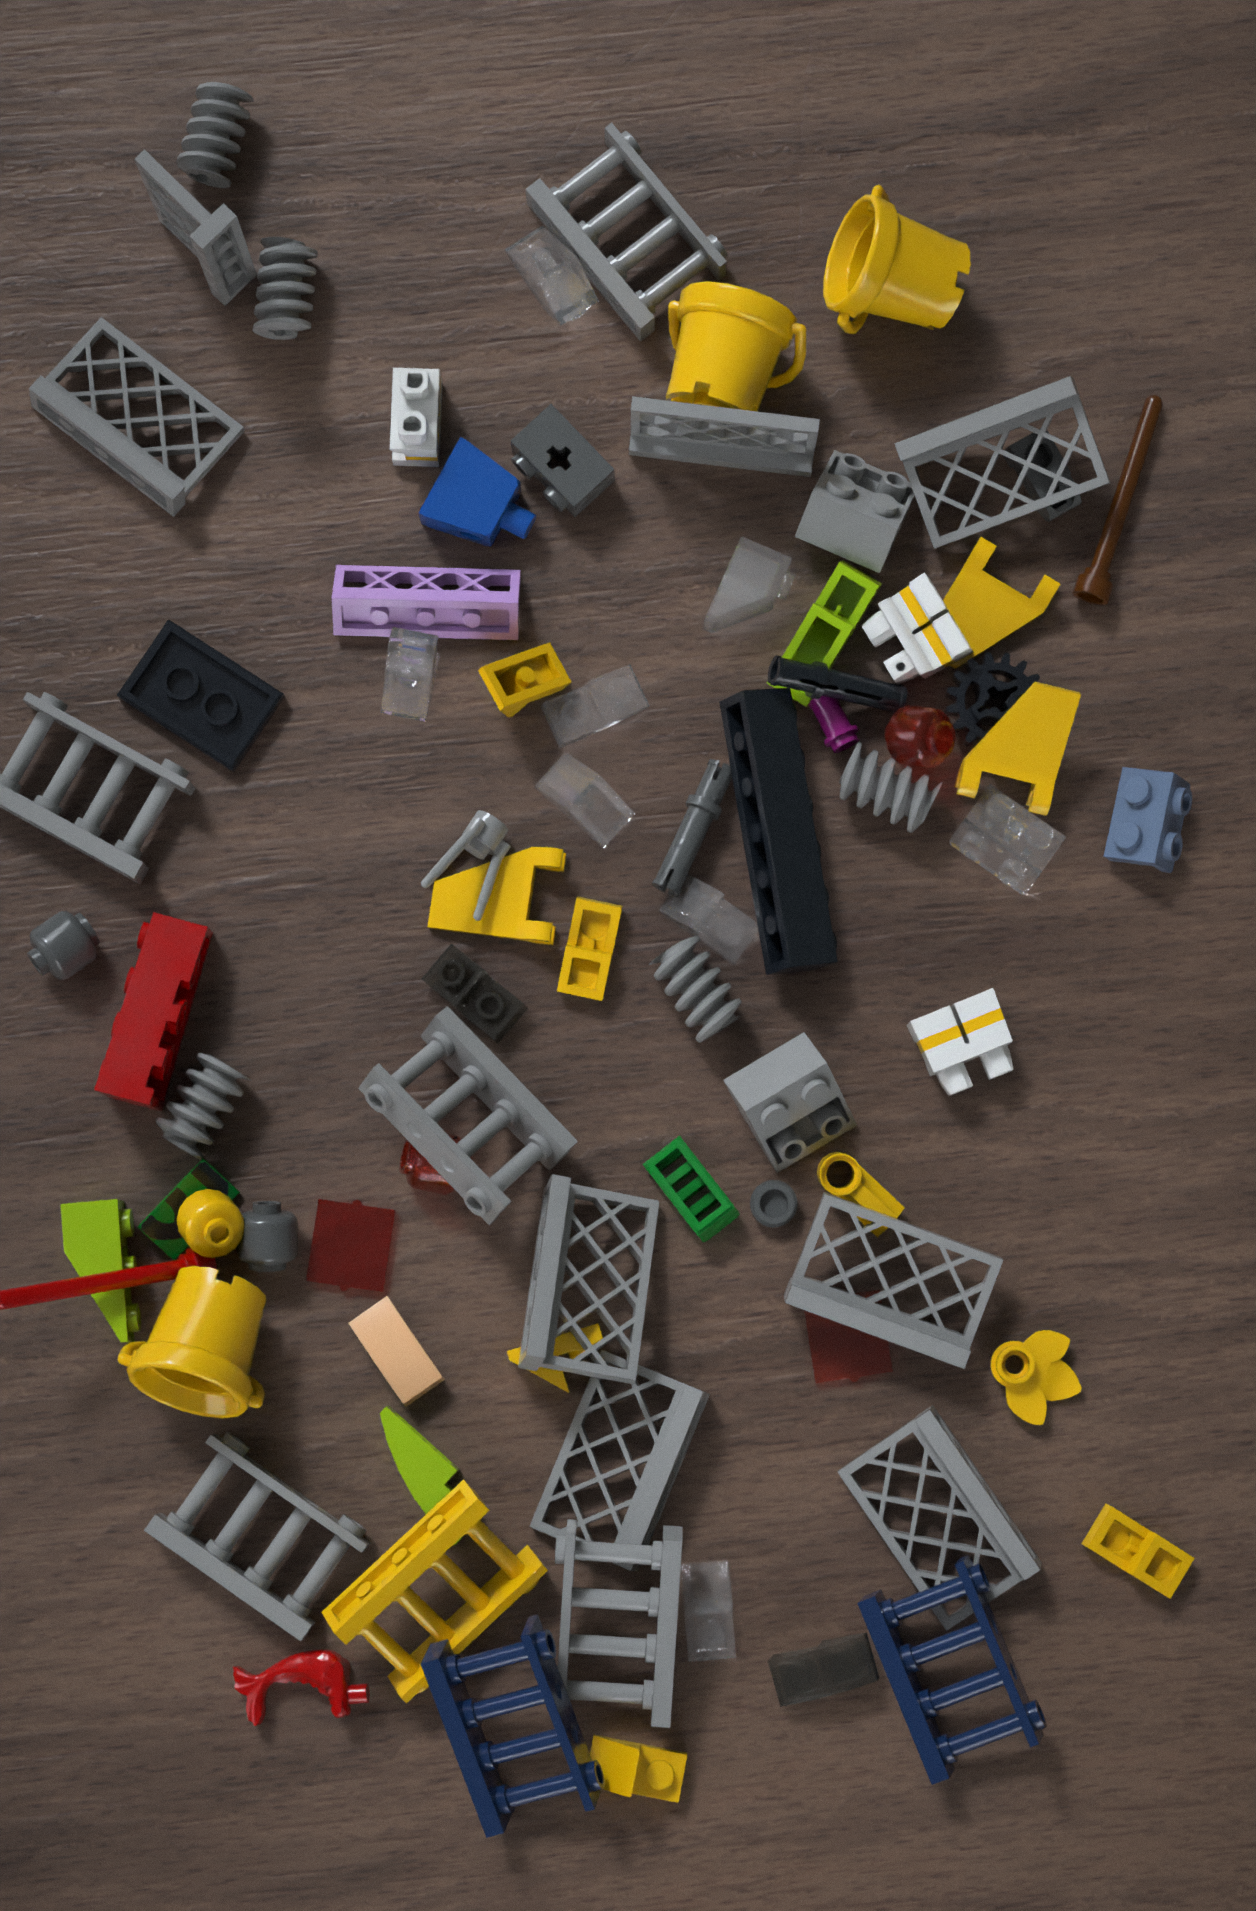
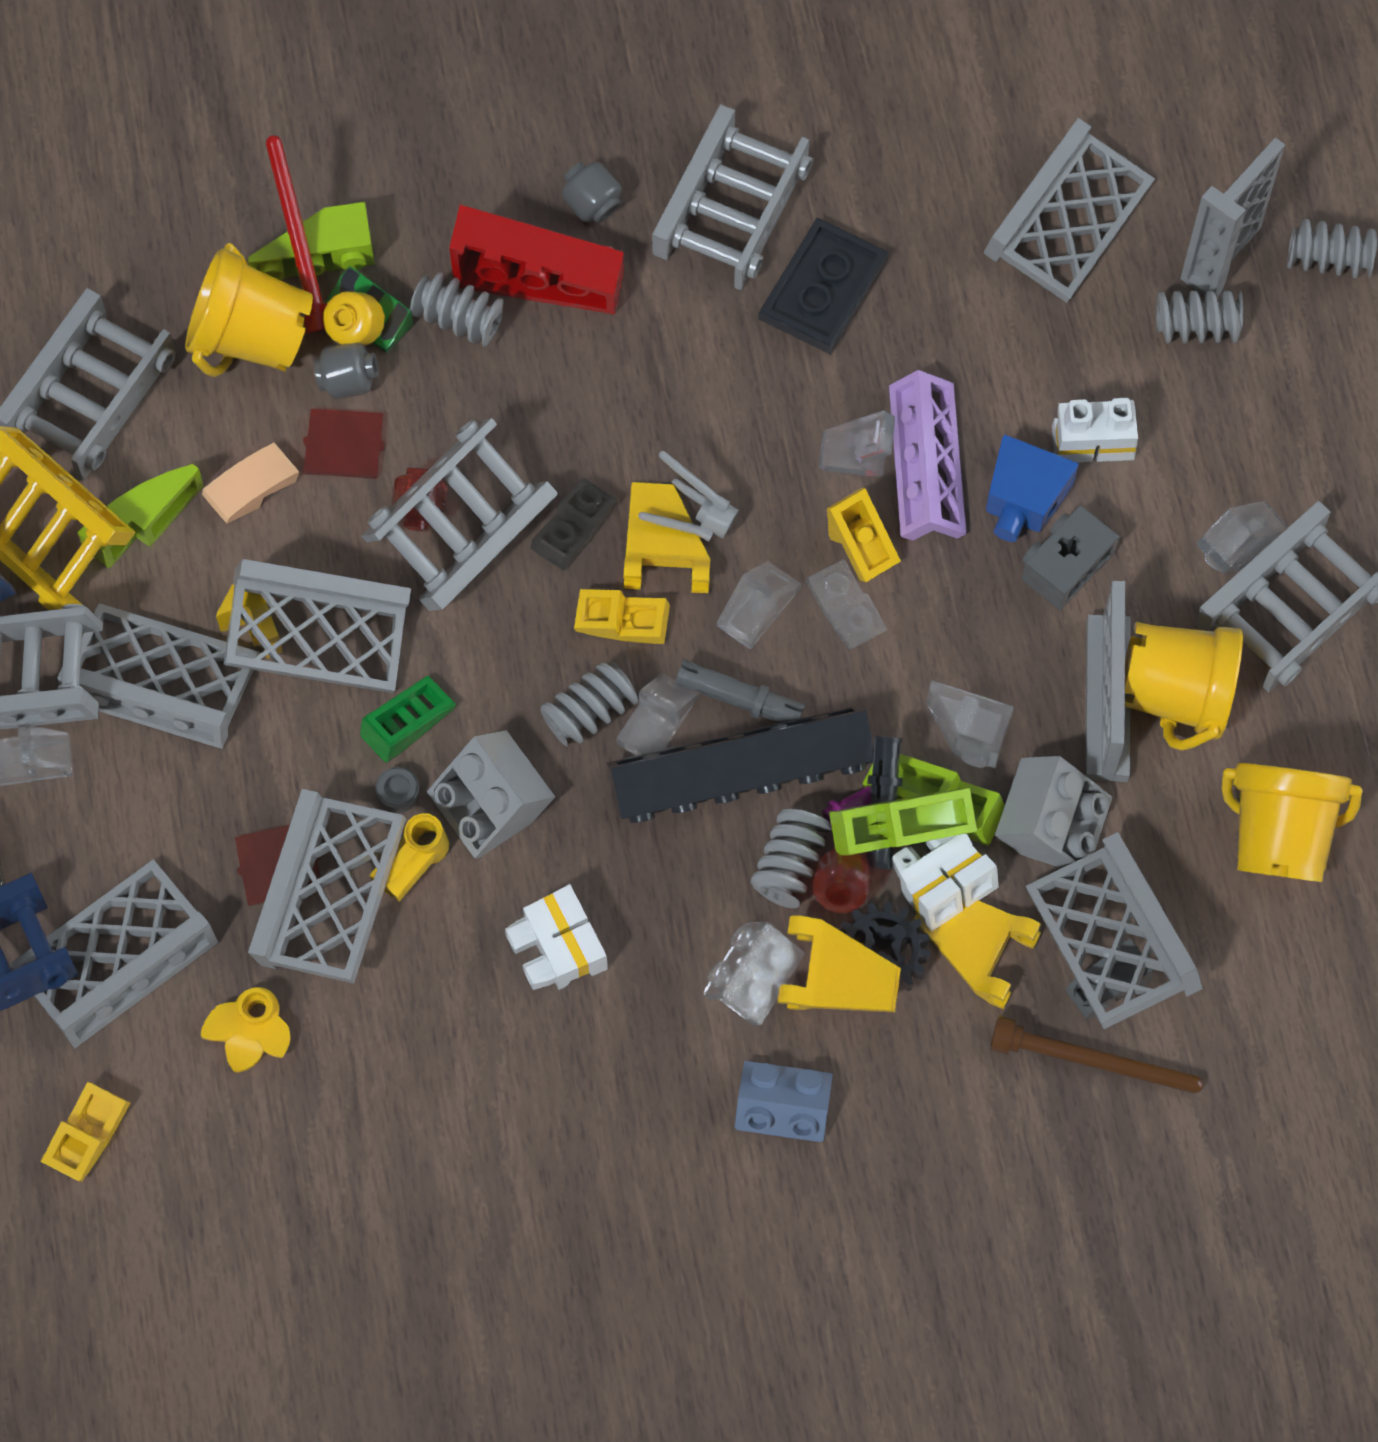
camera: 85 degrees right, 15 degrees down
(871, 665) = (903, 821): none -> lime slope

